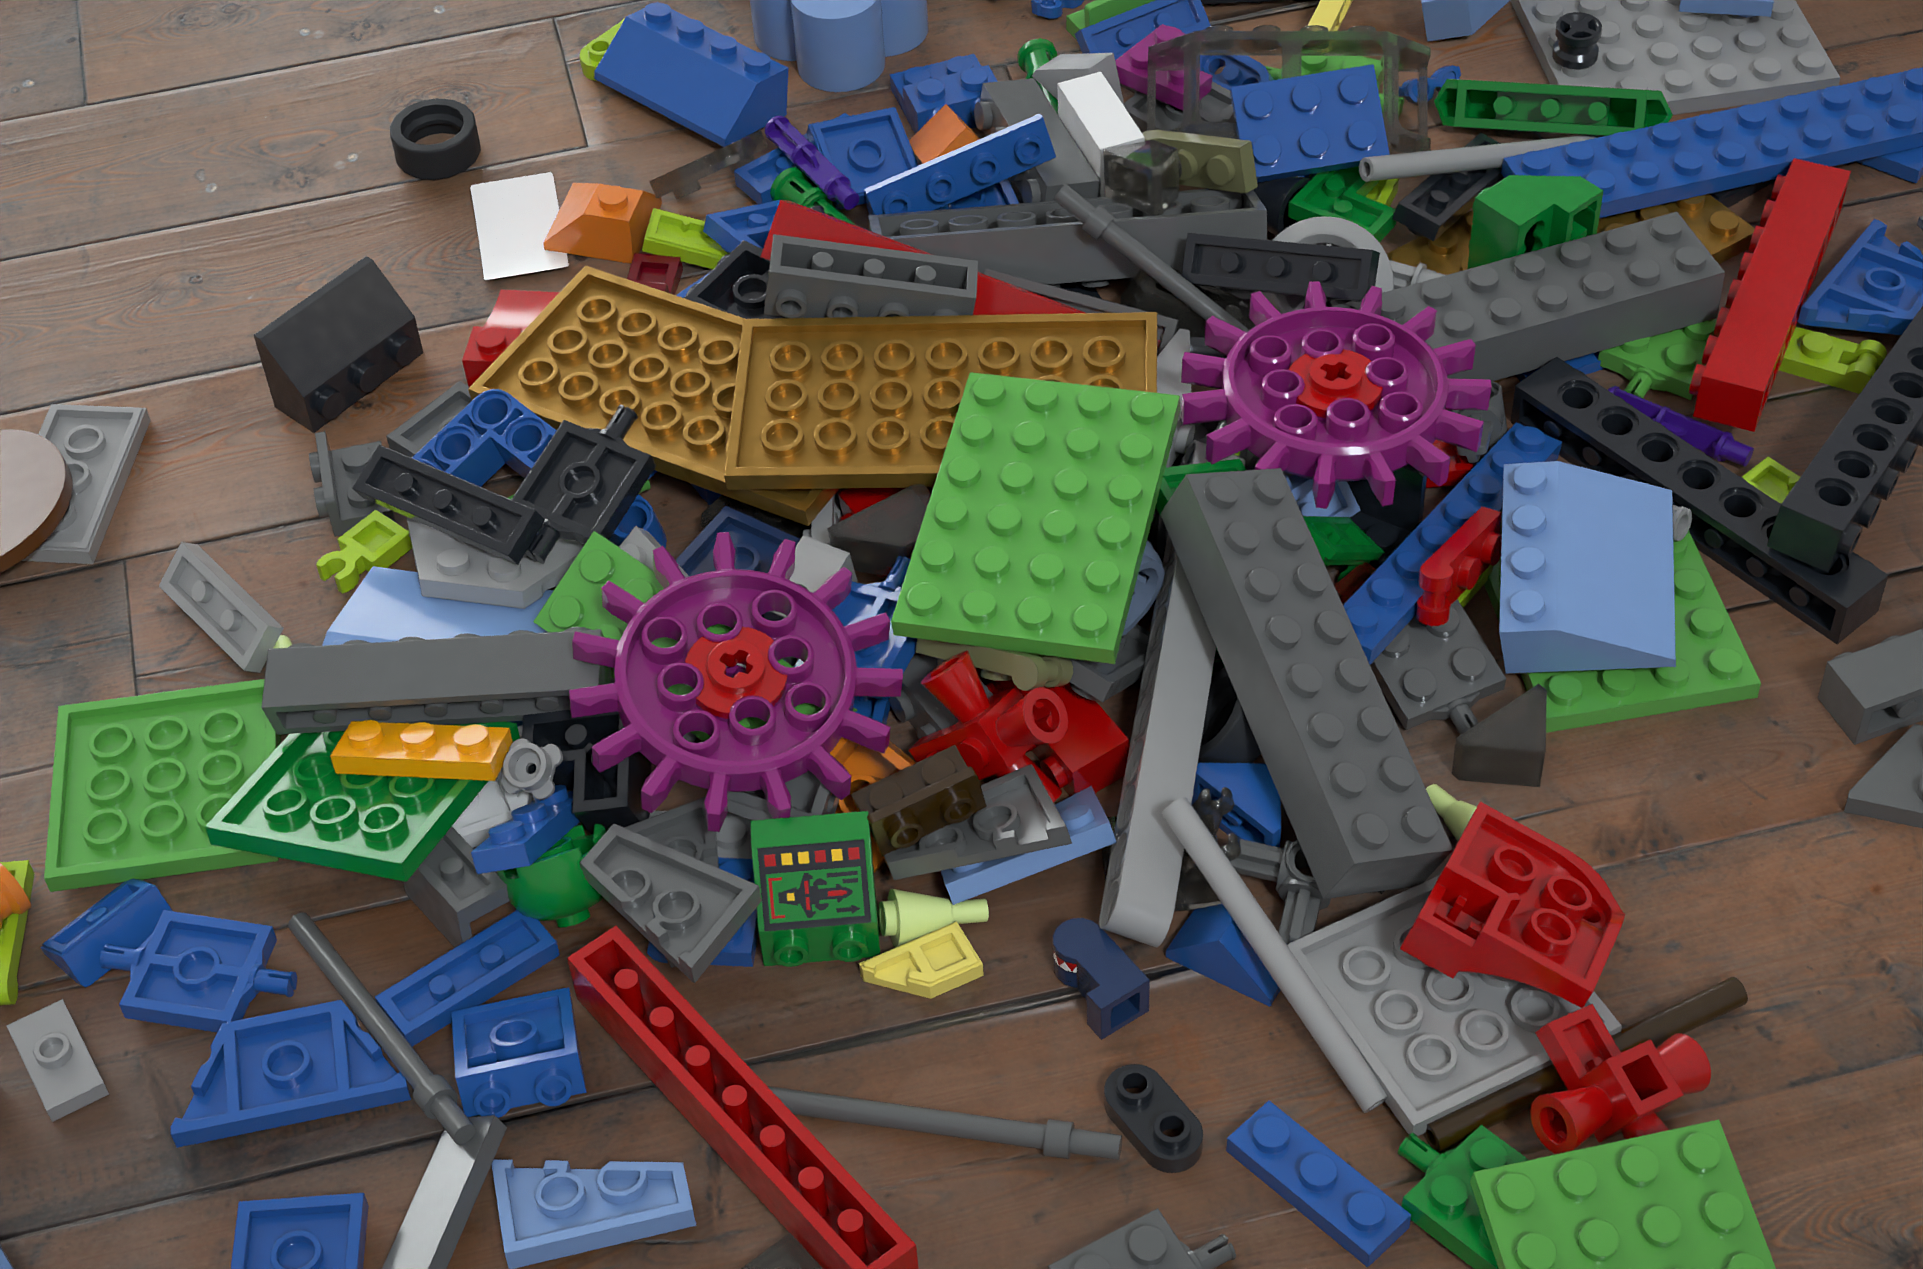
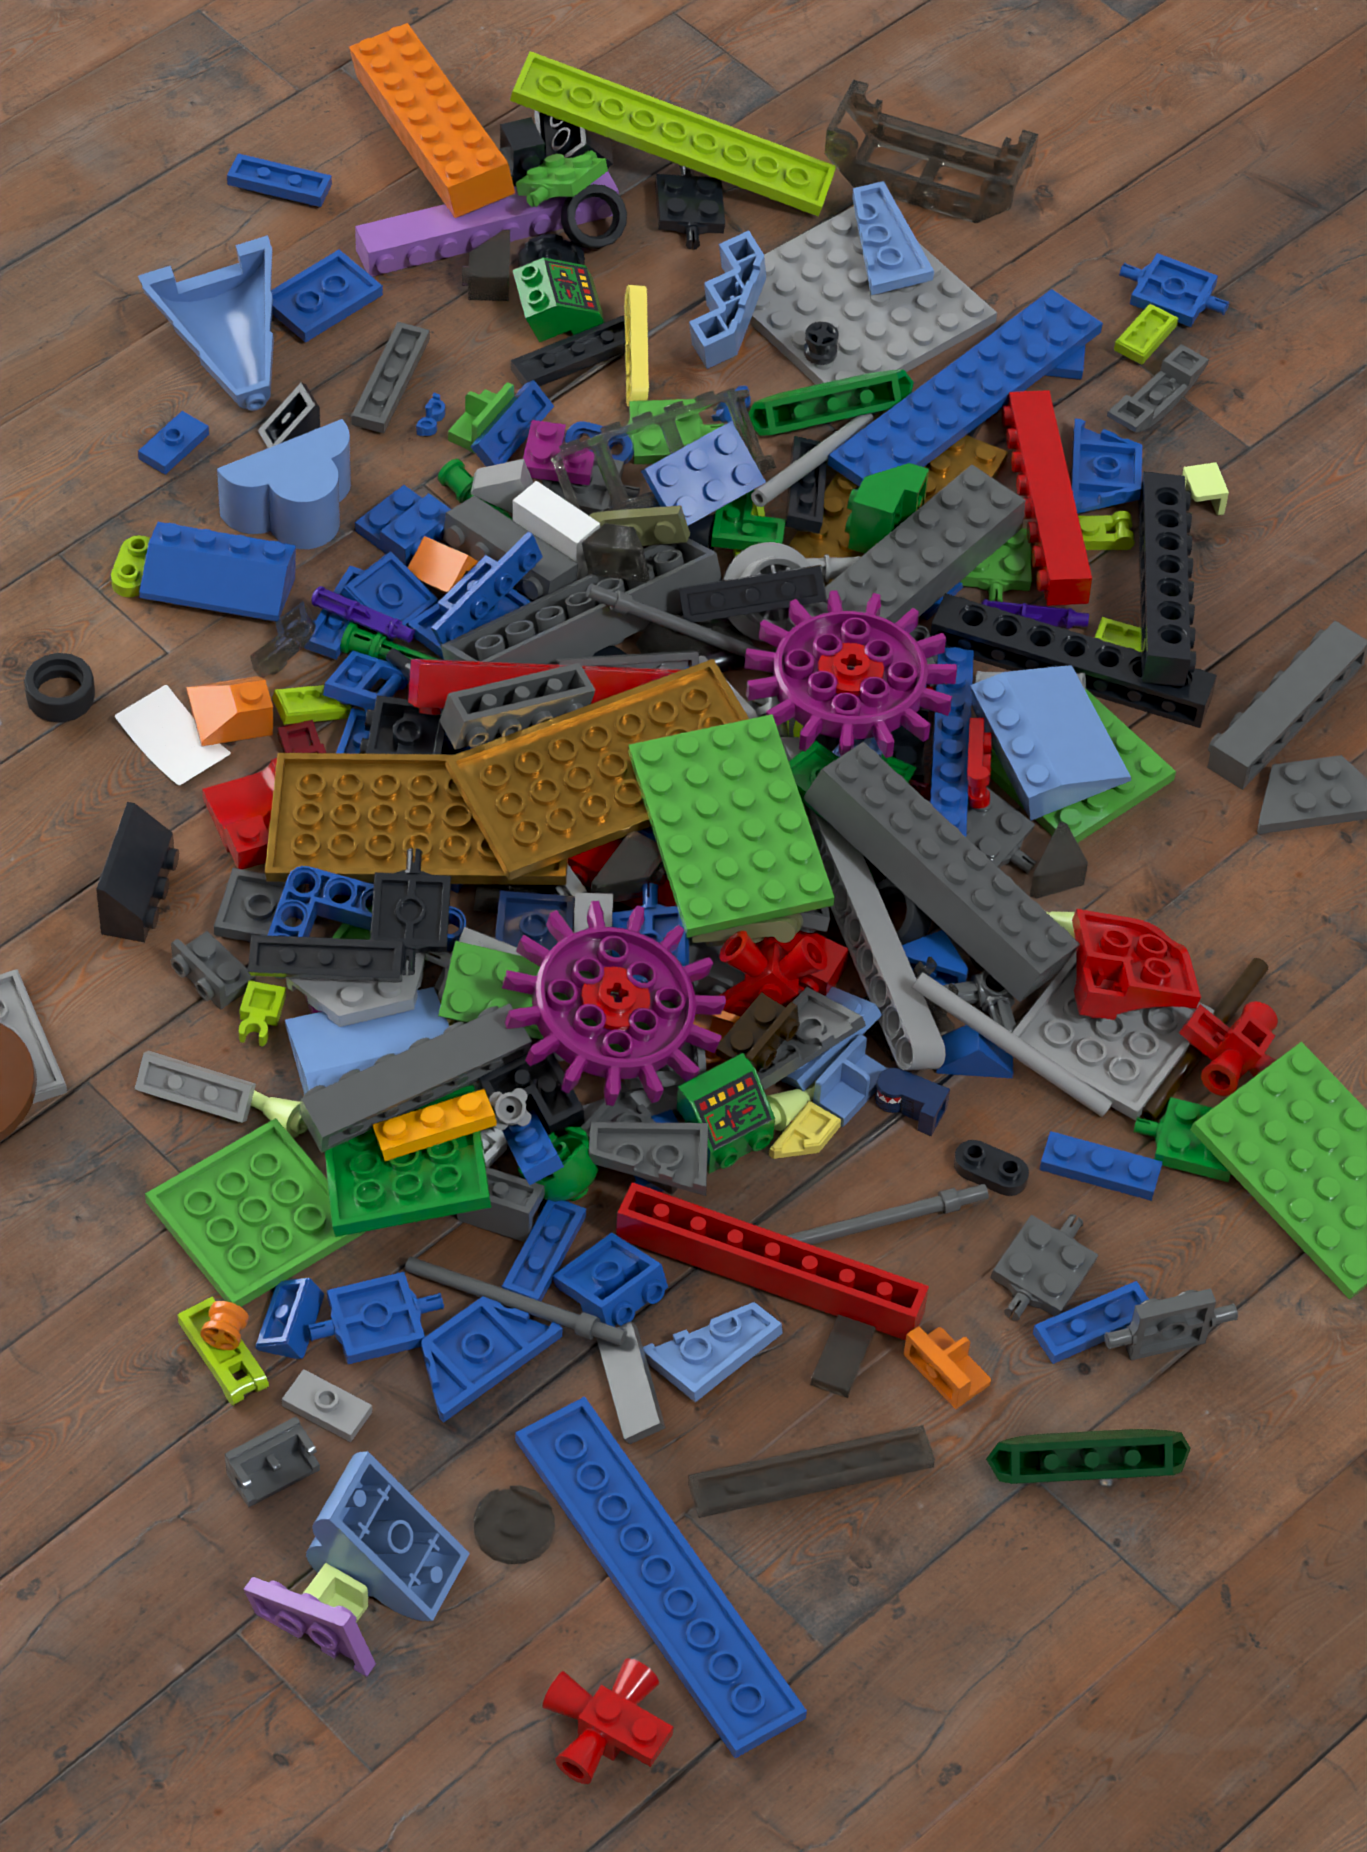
camera: 35 degrees left, 5 degrees up
(1018, 914) = (848, 1082): none -> medium blue panel

